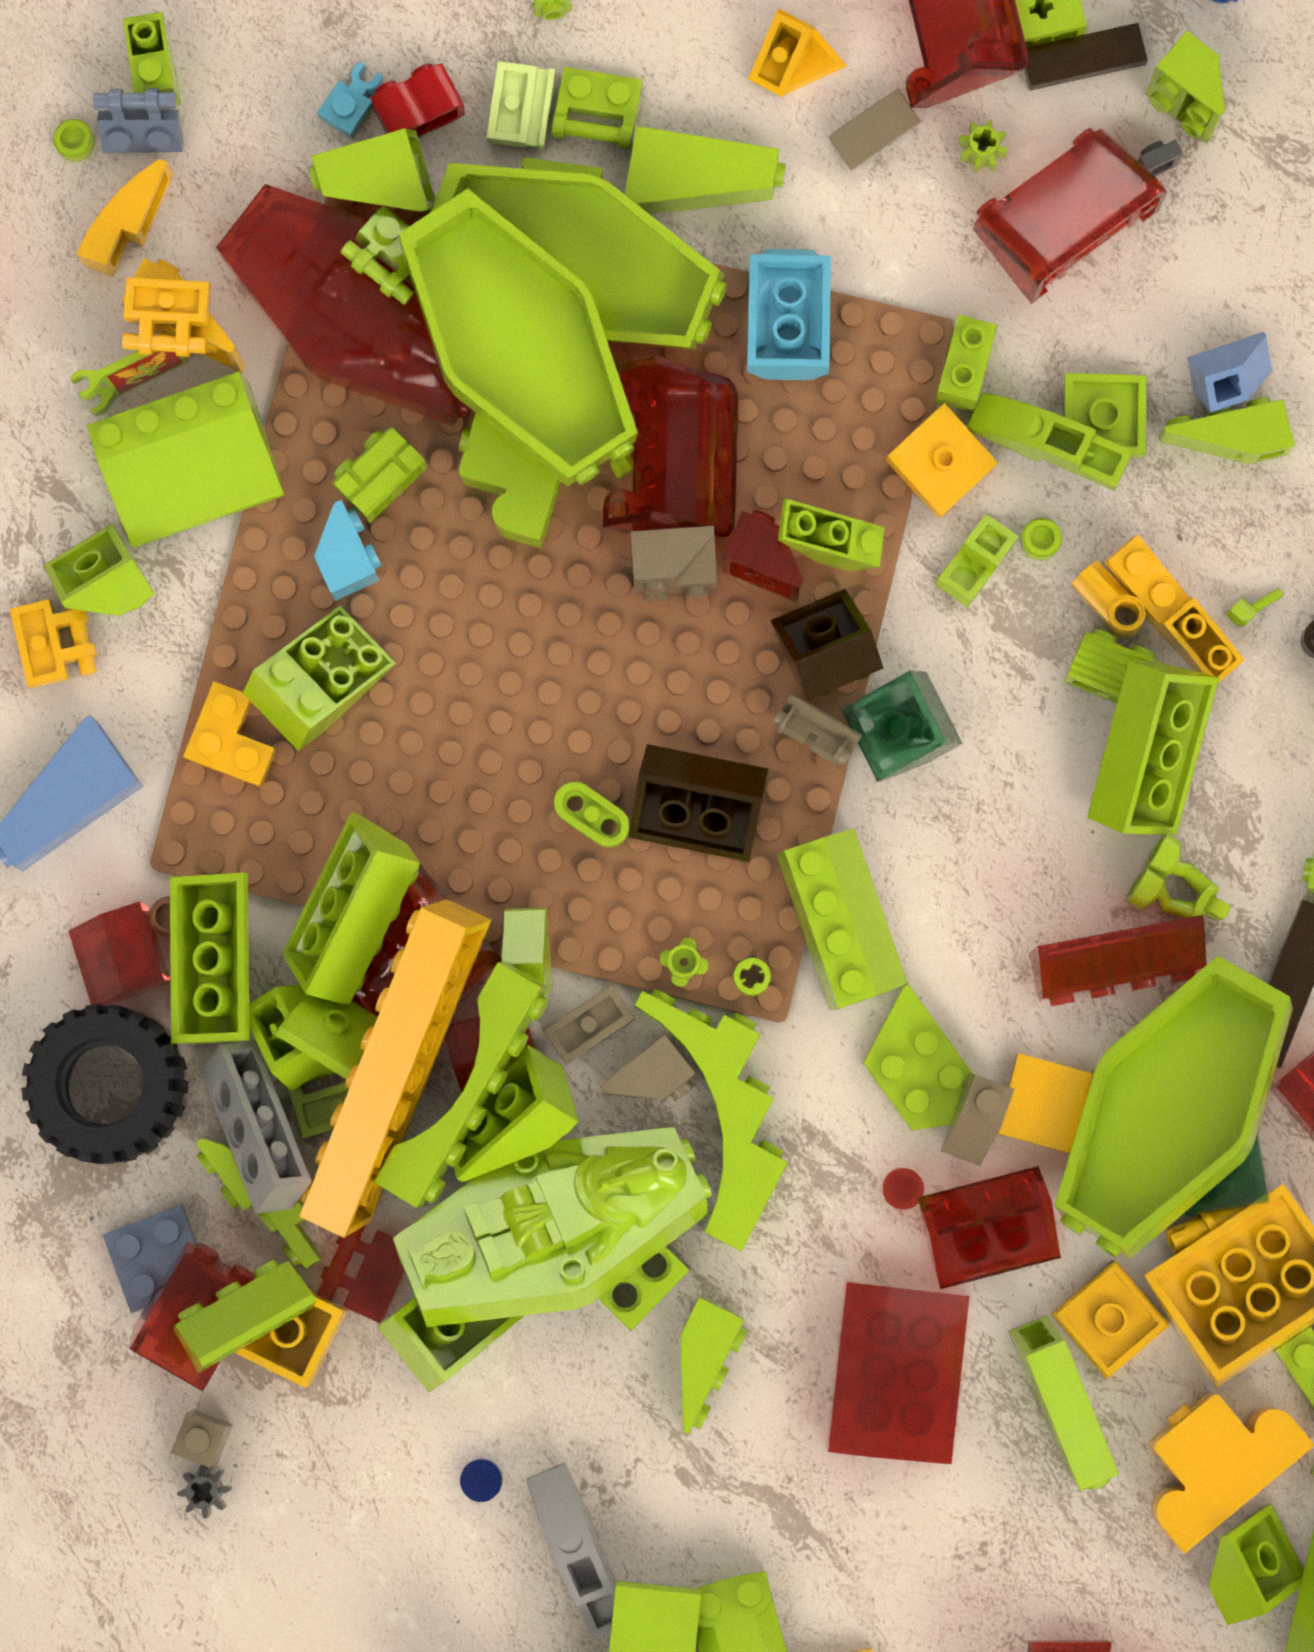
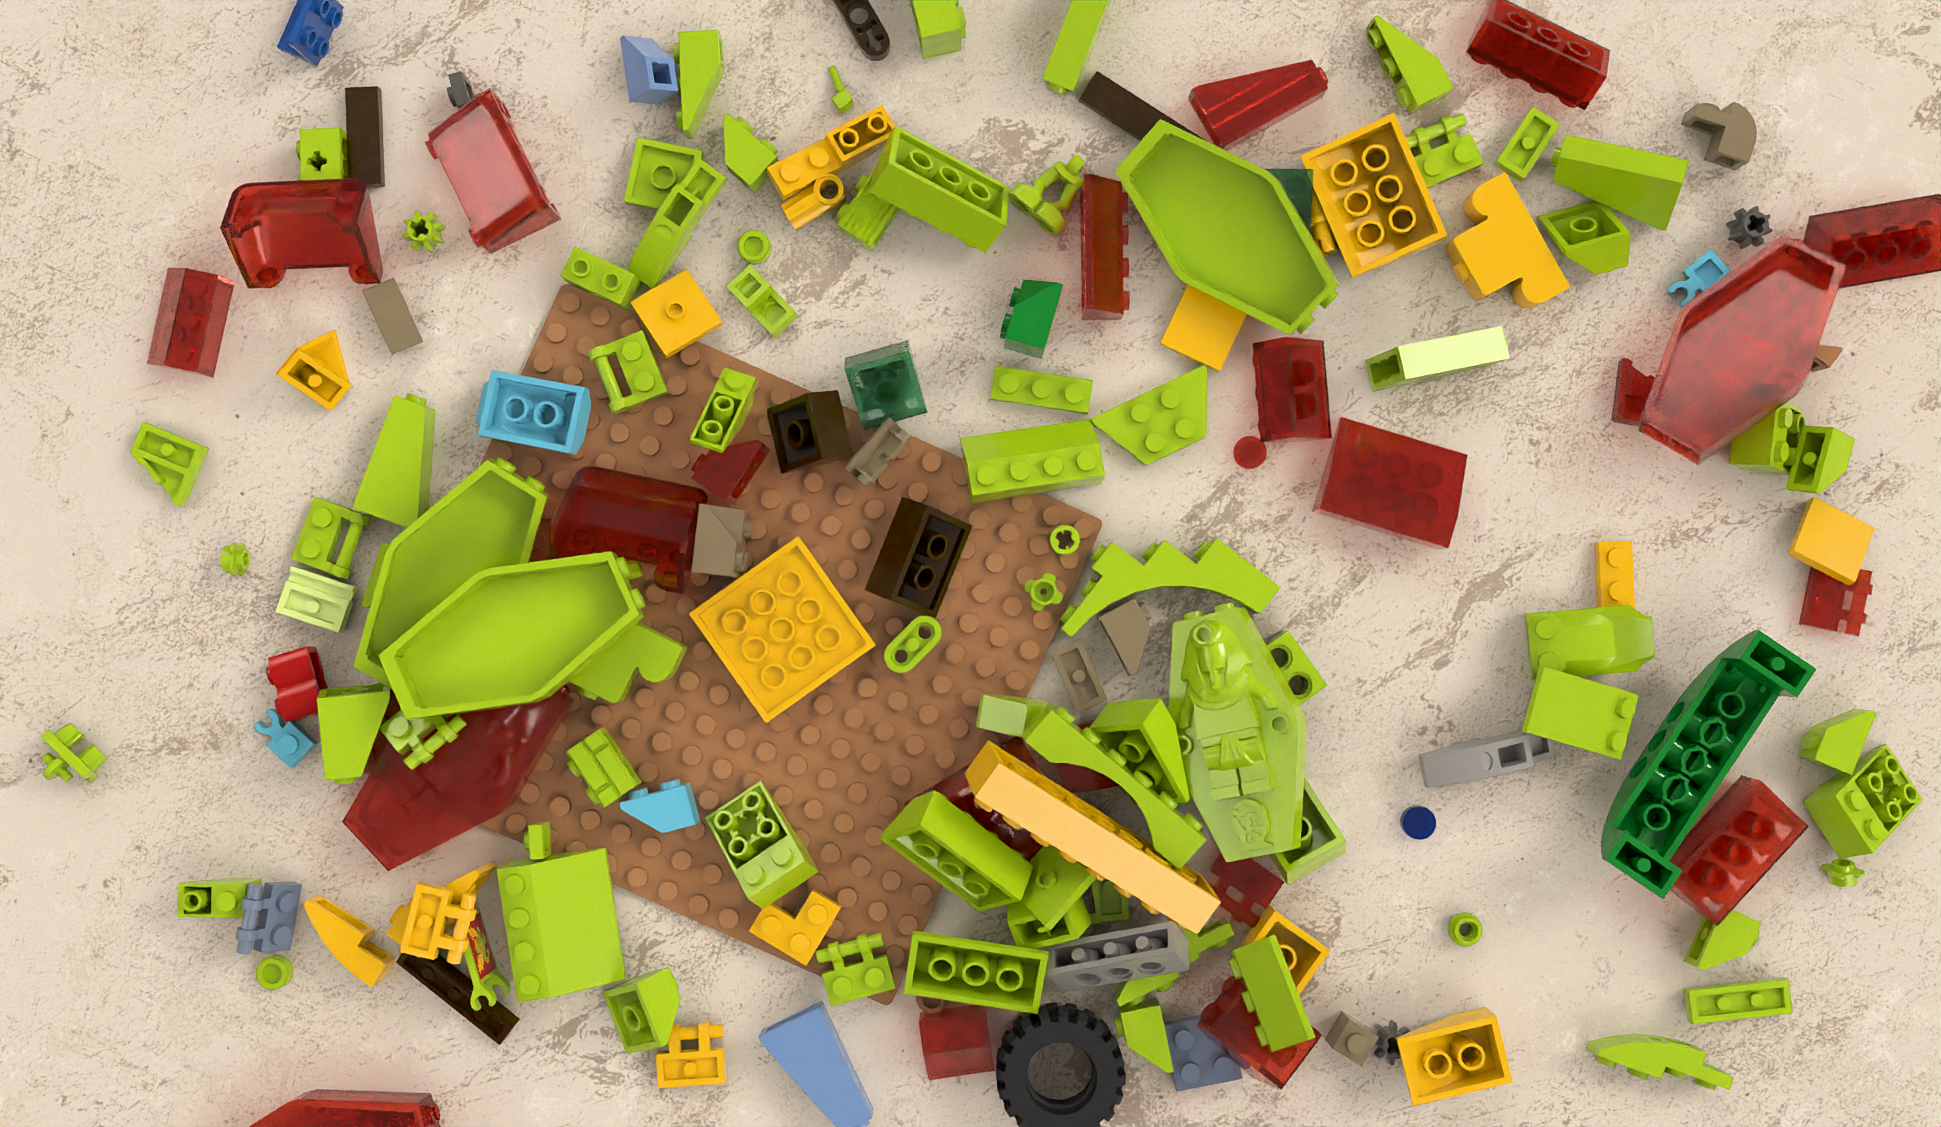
camera: 85 degrees left, 5 degrees up
(87, 351) = (456, 991): none -> dark brown tile
(168, 1182) = (1145, 1032): none -> lime slope
(176, 822) = (860, 978): none -> lime plate
(199, 1566) = (1454, 1056): none -> yellow slope
(280, 414) = (538, 840): none -> lime plate
(345, 1564) = (1472, 936): none -> lime plate
(582, 655) = (782, 629): none -> yellow plate
(704, 1347) = (1345, 628): lime slope -> none
(865, 428) = (638, 367): none -> lime plate
(932, 917) = (1041, 390): none -> lime plate
(977, 1119) = (1207, 383): dark tan slope -> none
(1017, 887) = (1032, 317): none -> green slope
(1110, 1319) = (1377, 311): yellow tile -> none
(1151, 506) = (745, 154): none -> lime slope
(1189, 87) = (407, 53): lime slope -> none

